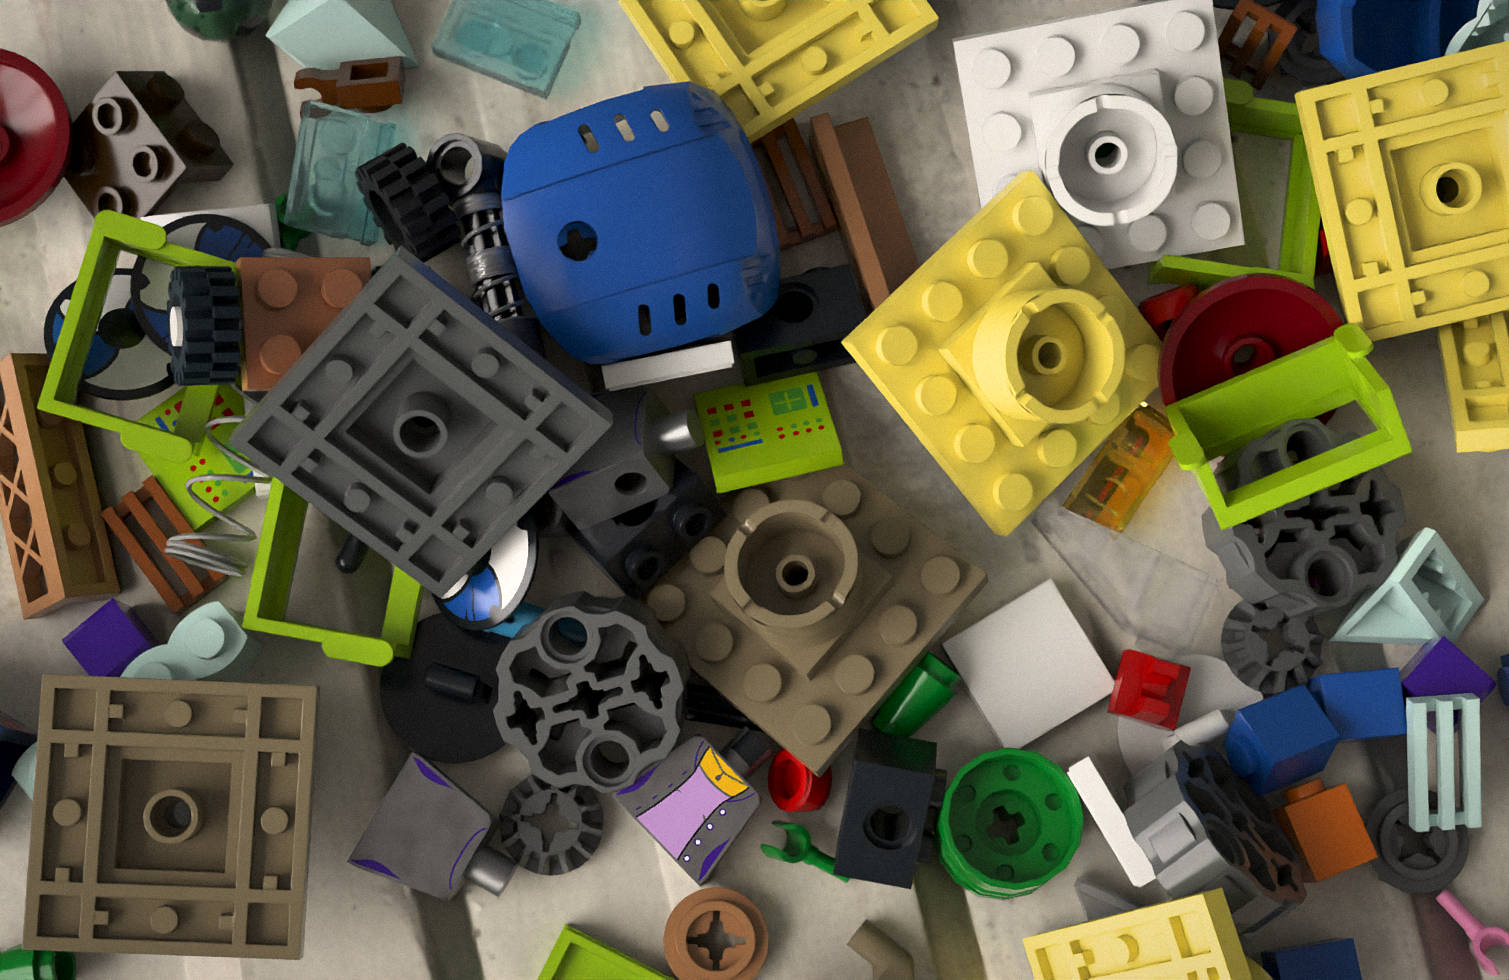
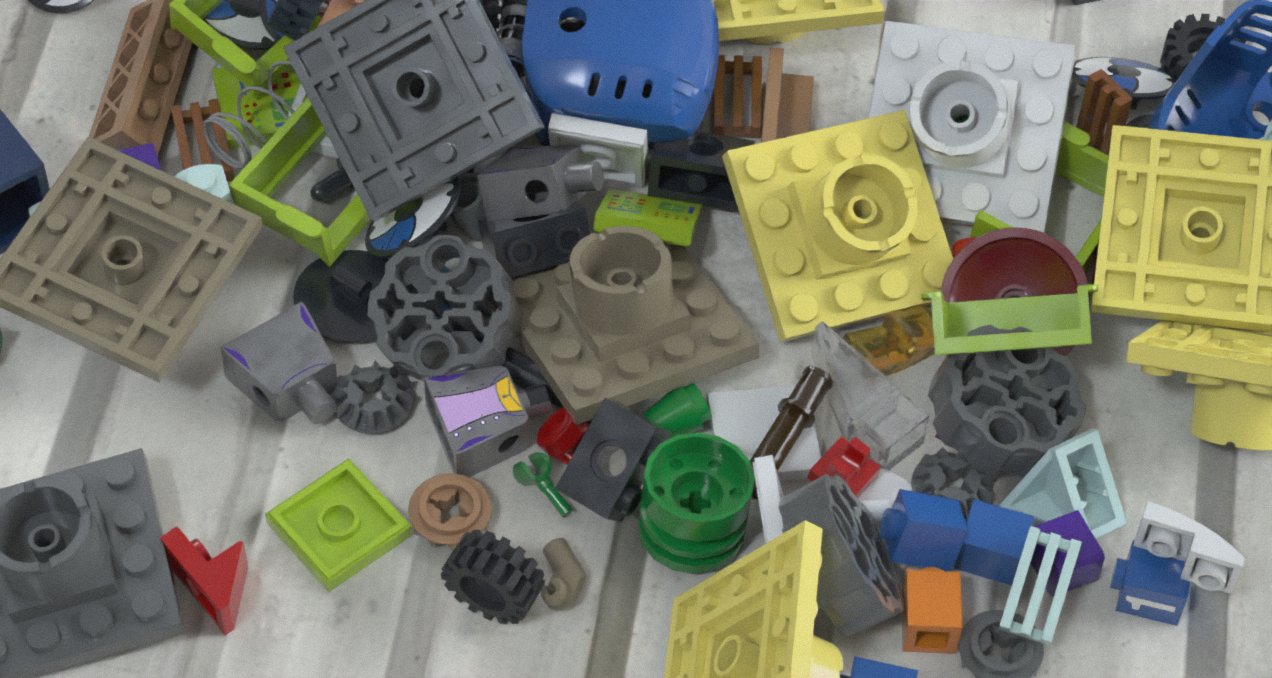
camera: 20 degrees right, 25 degrees down
(1062, 668) = (794, 416): none -> dark brown axle

